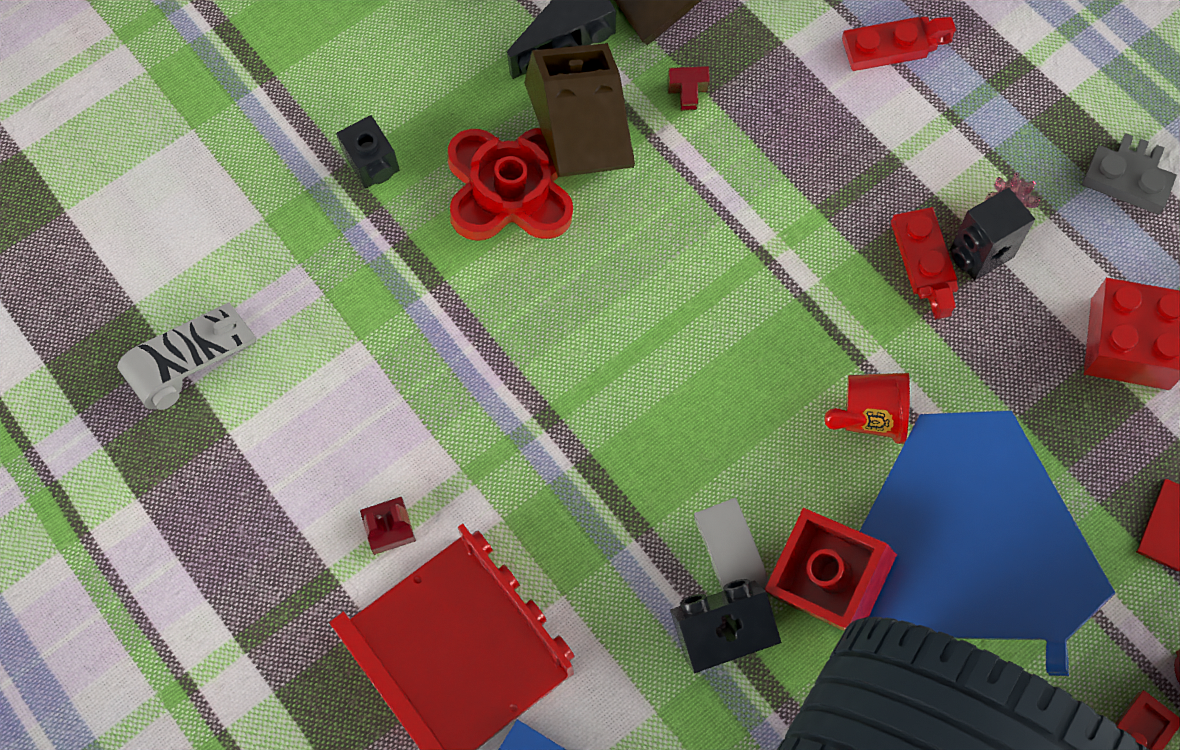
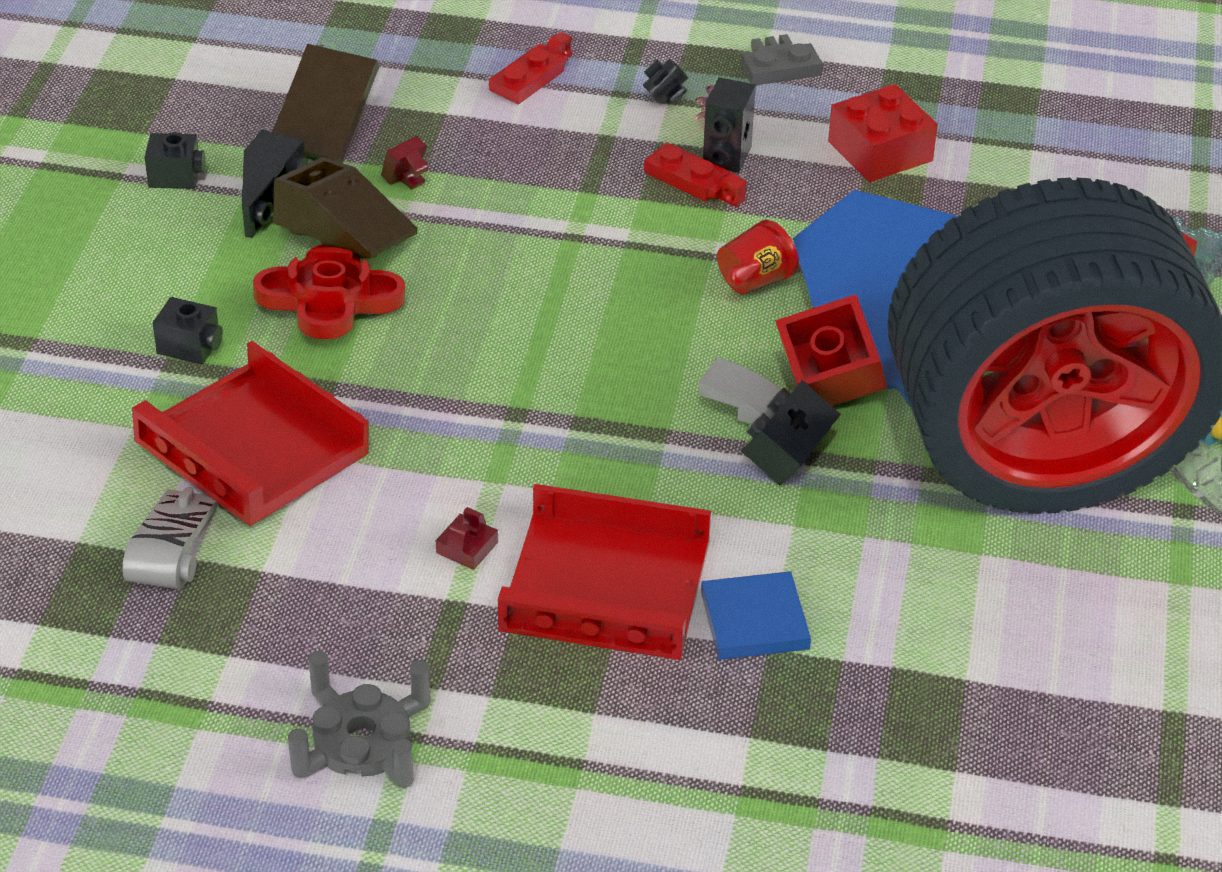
camera: 45 degrees left, 25 degrees down
(129, 638) = (367, 708): none -> dark grey plate
(321, 300) = (255, 436): none -> red panel
(992, 136) = (665, 81): none -> black gear

